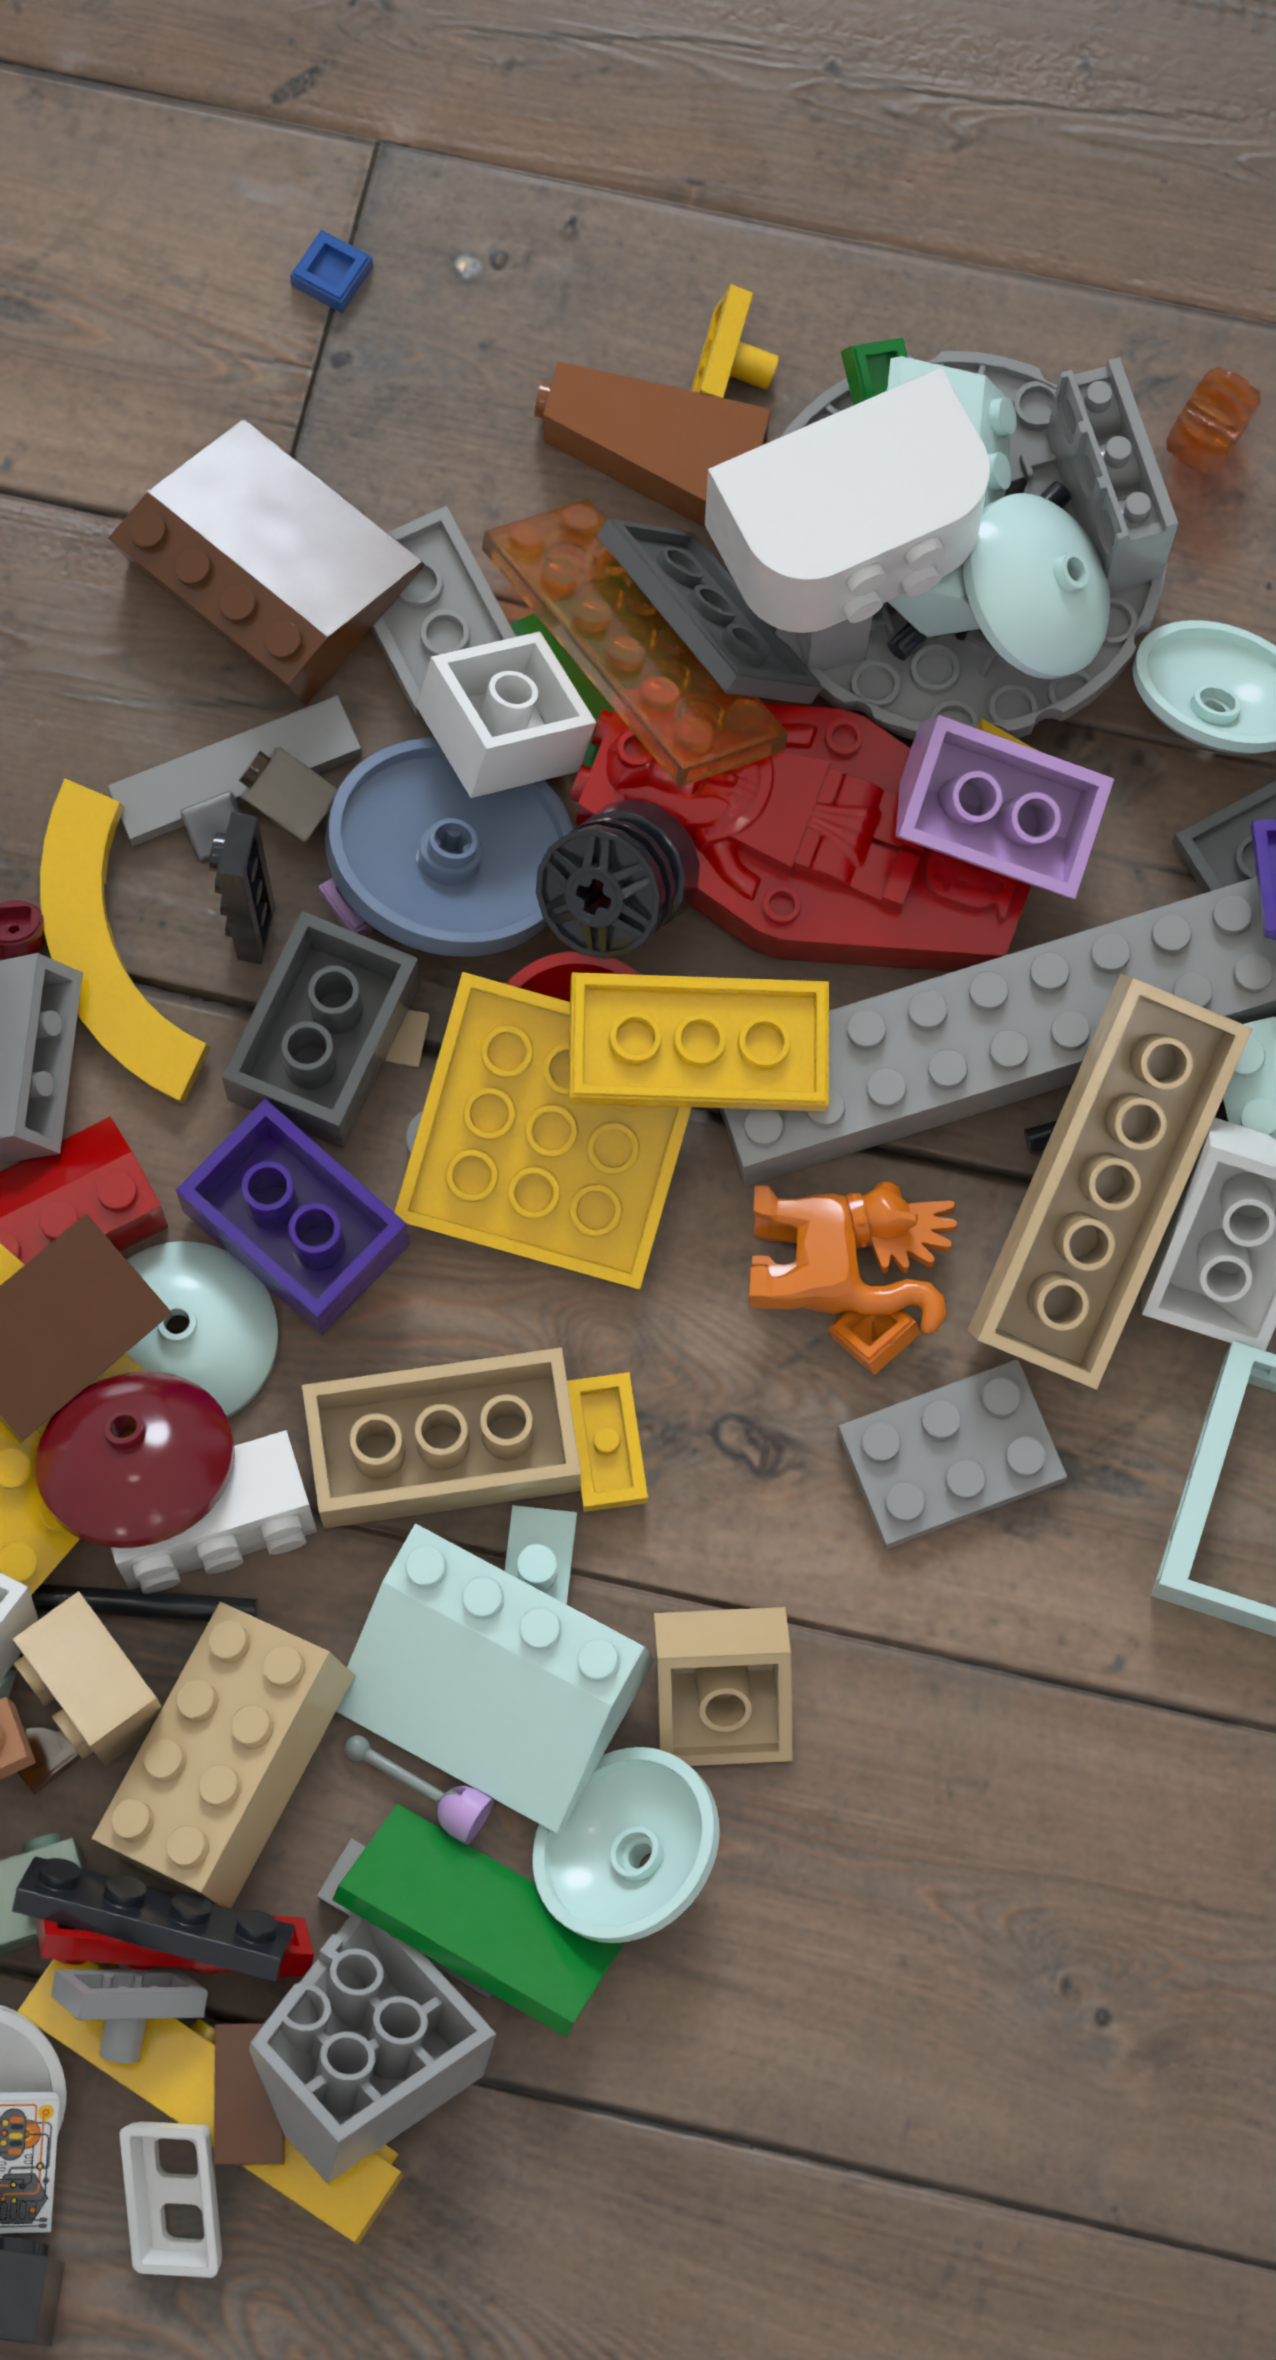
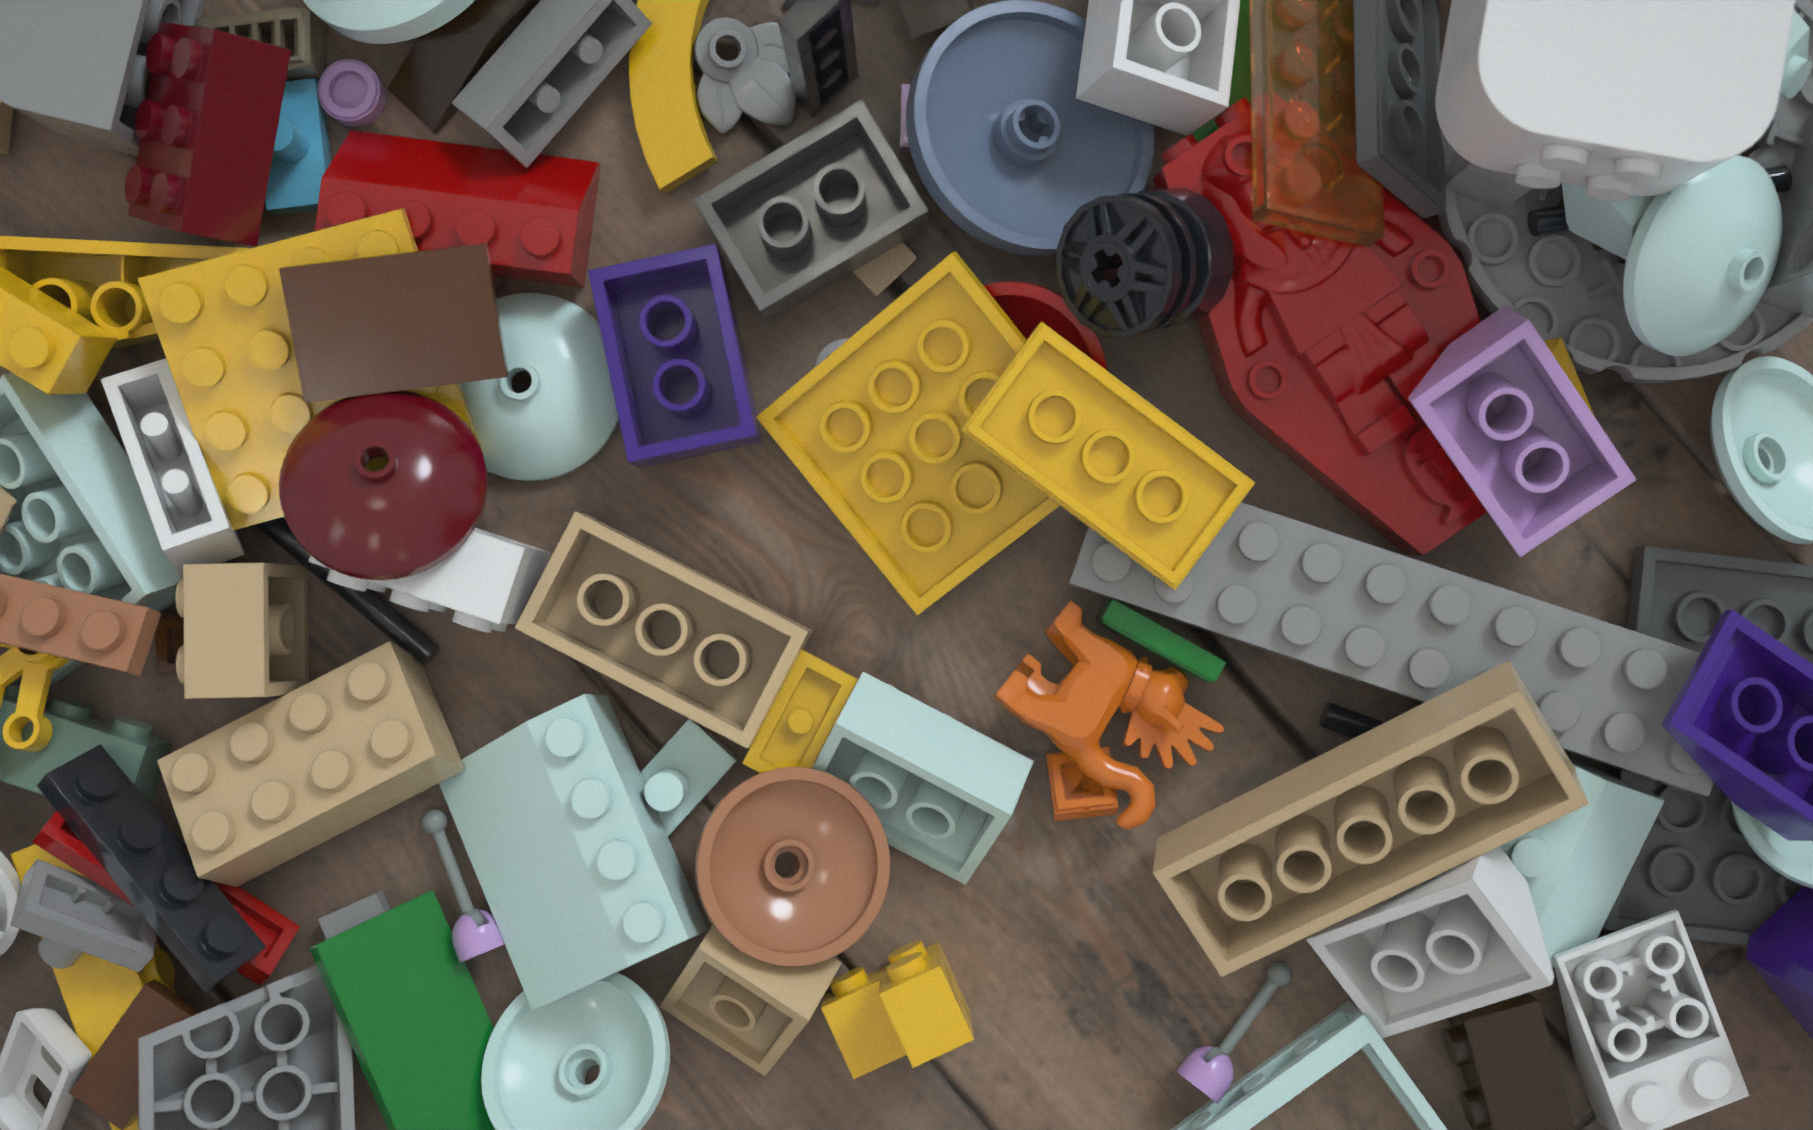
camera: 45 degrees right, 15 degrees up
(194, 964) = (750, 83): none -> light grey plate
(691, 1514) = (836, 874): none -> nougat dish
(736, 1421) = (925, 775): none -> light aqua slope
(850, 1171) = (1160, 641): none -> green tile
(866, 1601) = (898, 1010): none -> yellow brick
(951, 1454) = (1069, 926): light grey plate -> none
(1152, 1485) = (1210, 1066): none -> hinge

